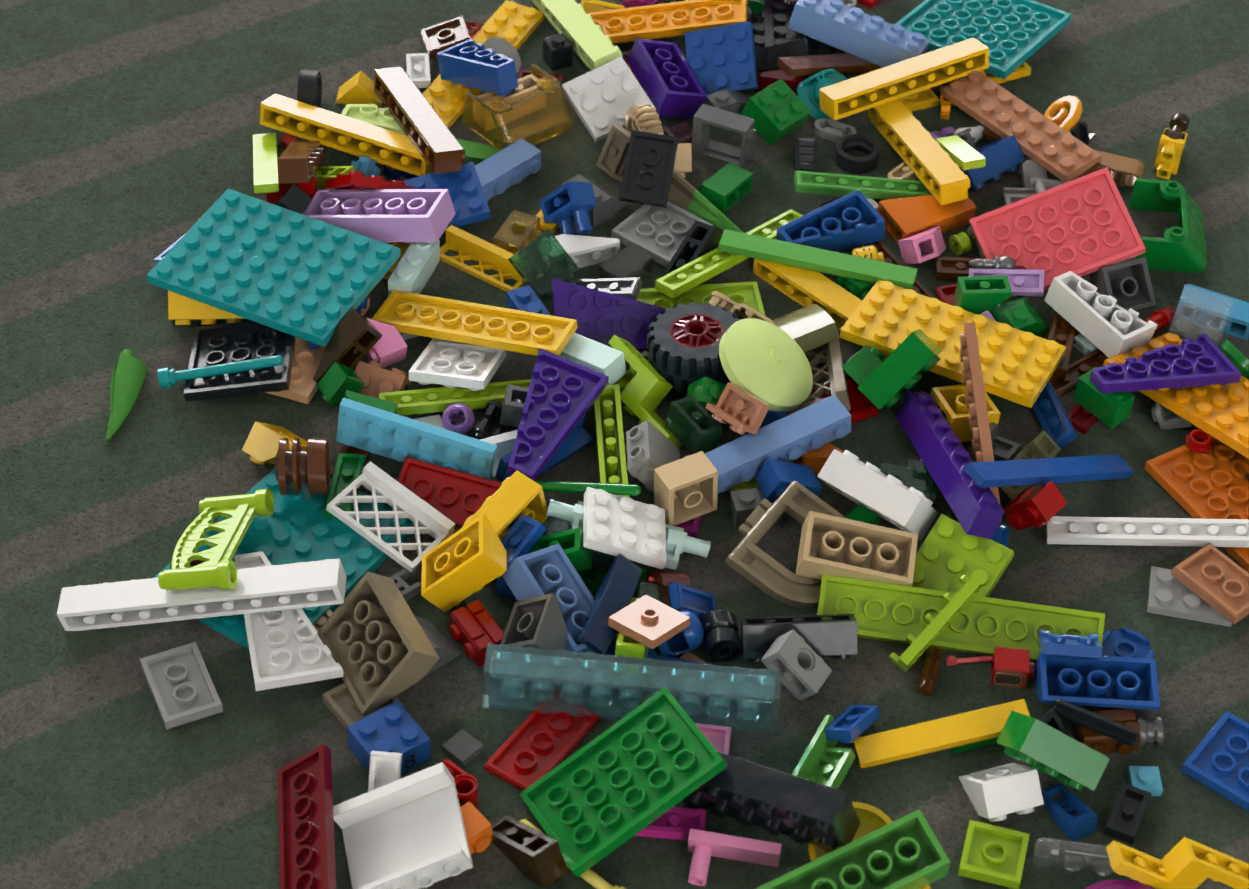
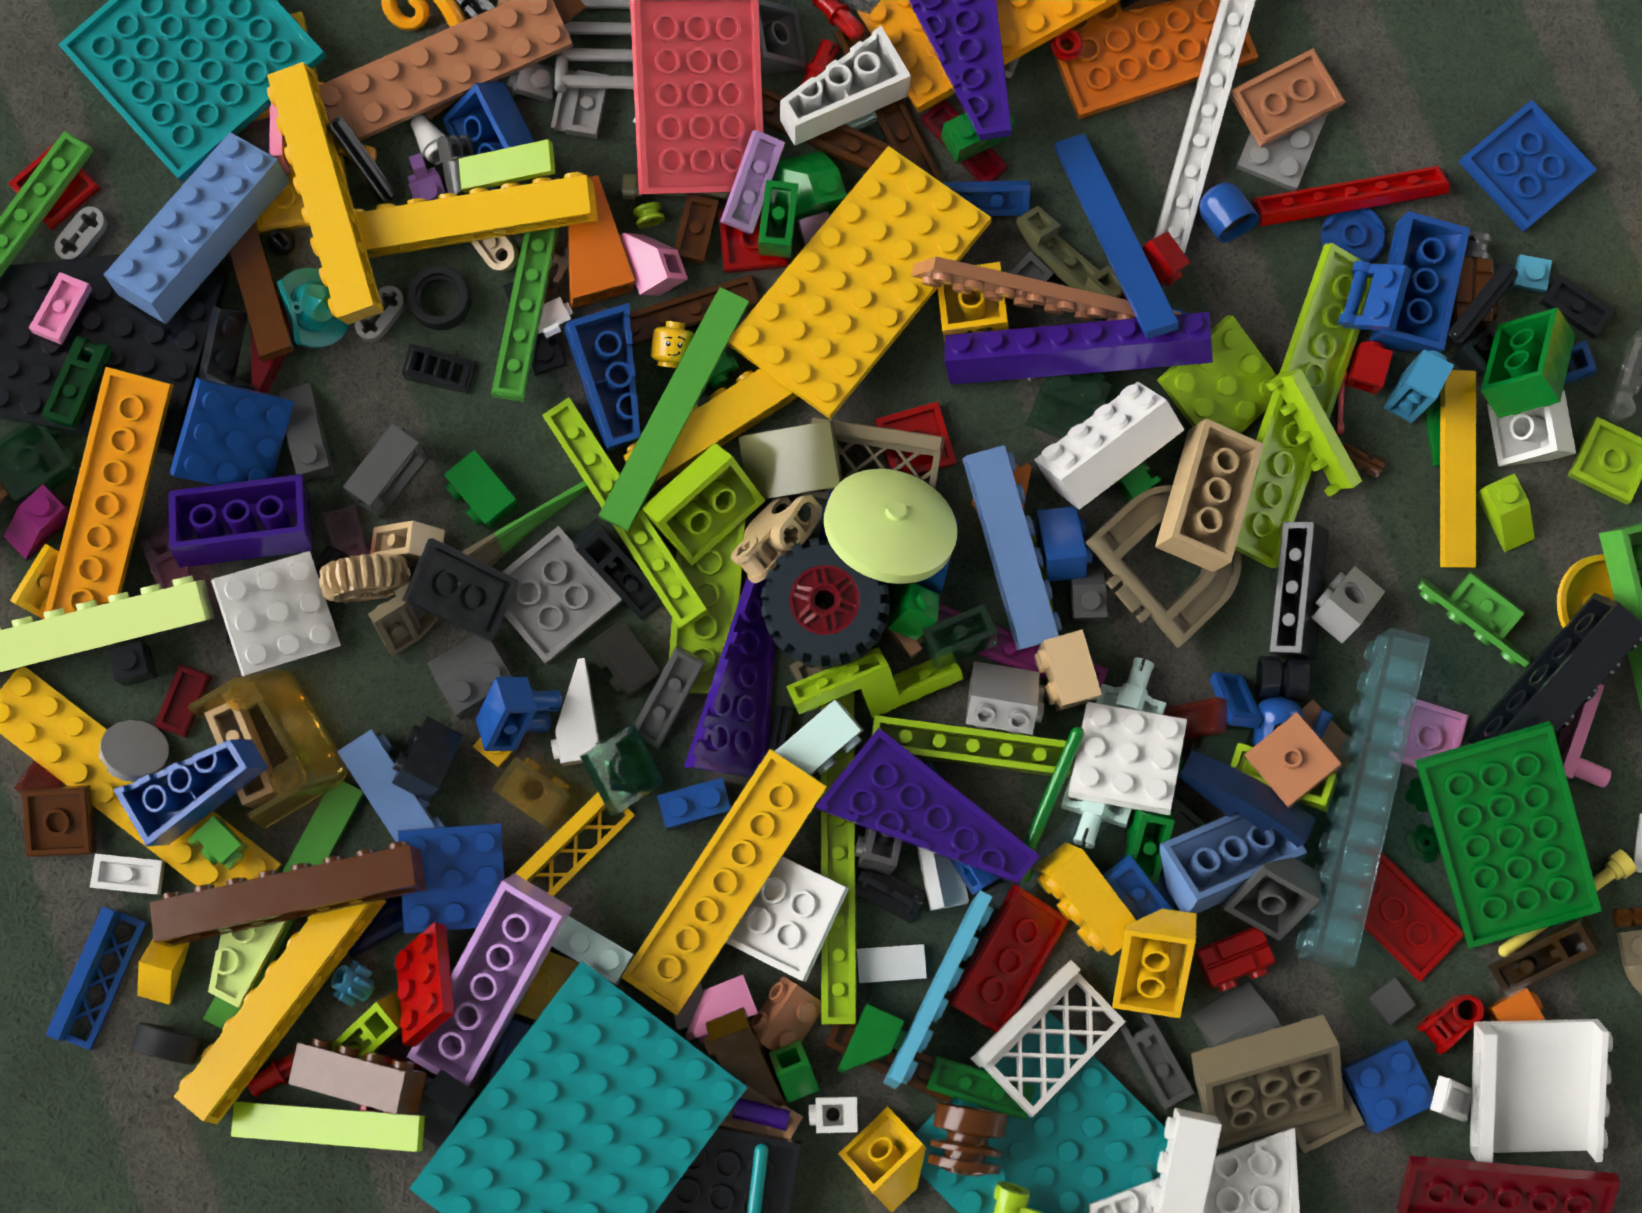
camera: 80 degrees left, 35 degrees up
(306, 369) = (761, 1114): none -> dark purple hinge
(312, 415) = (847, 1119): none -> white brick
(349, 59) = (85, 972): none -> blue fence
(447, 94) = (219, 843): none -> bright green brick
(458, 418) = (877, 927): medium lavender piece -> none
(527, 177) = (426, 758): none -> black brick
(739, 409) = (974, 580): nougat bracket -> none
(752, 283) = (703, 503): none -> lime slope
(776, 112) = (345, 386): green brick -> none
(852, 723) = (1428, 562): blue plate -> none
(863, 363) = (890, 404): green slope -> none
(900, 370) = (919, 361): green brick -> none
(918, 777) = (1507, 512): none -> lime slope
(939, 98) = (361, 159): none -> black axle
(1003, 262) = (723, 176): flat silver bar -> none
(1003, 673) = (1419, 385): none -> dark azure brick
(1106, 549) = (1222, 207): none -> blue helmet
(1159, 643) = (1351, 195): none -> red tile

